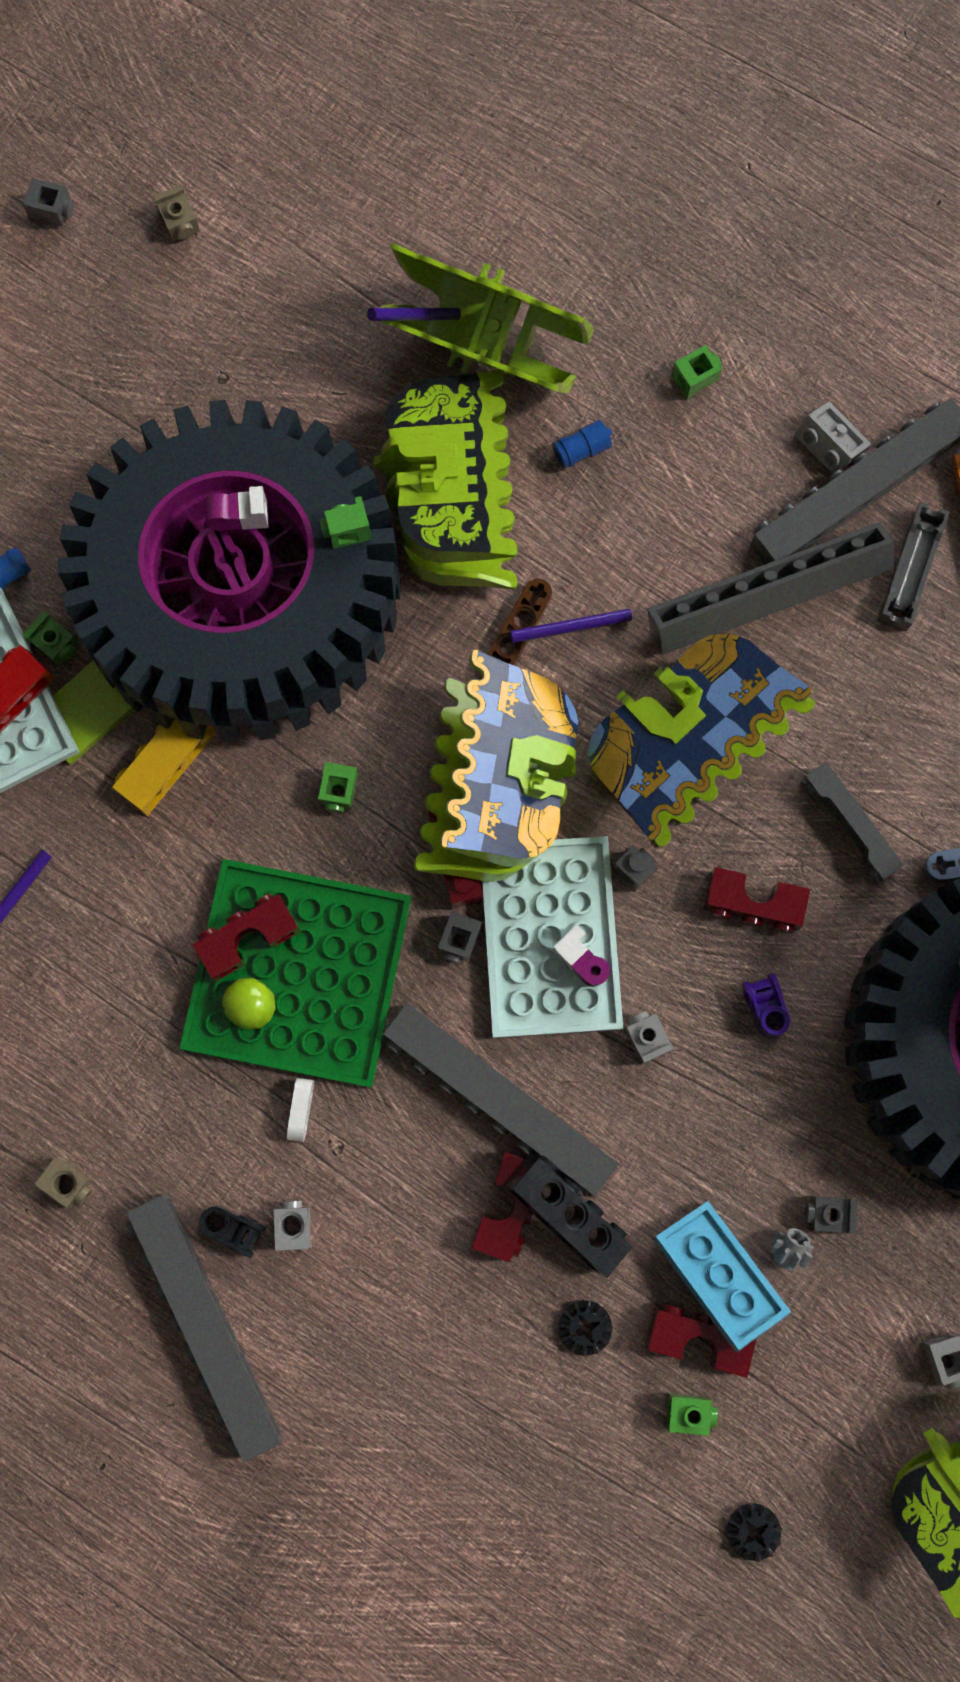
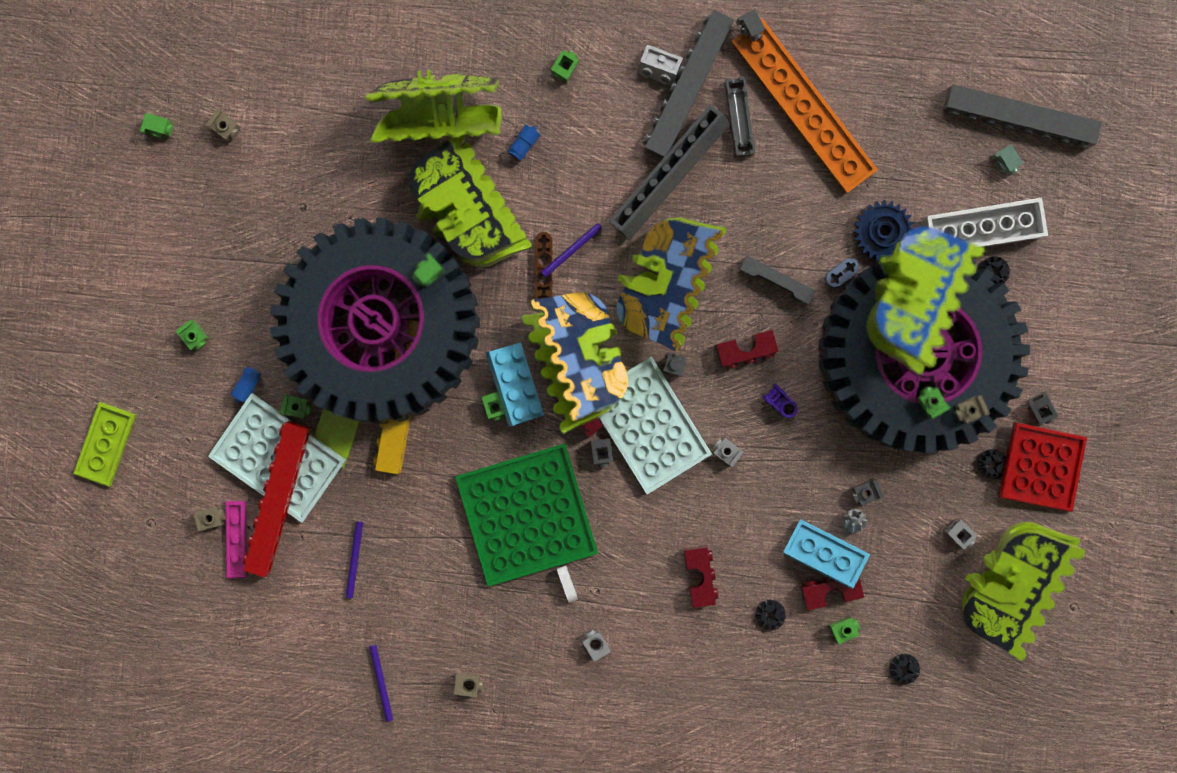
camera: 25 degrees left, 10 degrees up
(48, 202) = (141, 155): dark grey brick -> none
(85, 168) = (157, 126): none -> bright green brick
(205, 1328) = (578, 716): dark grey brick -> none
(220, 947) = (481, 526): dark red arch -> none
(233, 1230) = (567, 662): black piece -> none
(237, 510) = (364, 294): leg -> none
(248, 1003) = (511, 545): lime hair -> none
(384, 771) = (514, 384): none -> medium azure plate
(413, 314) = (395, 124): dark purple bar -> none
(499, 1099) = (667, 524): dark grey brick -> none
(527, 1184) = (761, 570): black brick -> none
(580, 960) = (679, 433): leg -> none

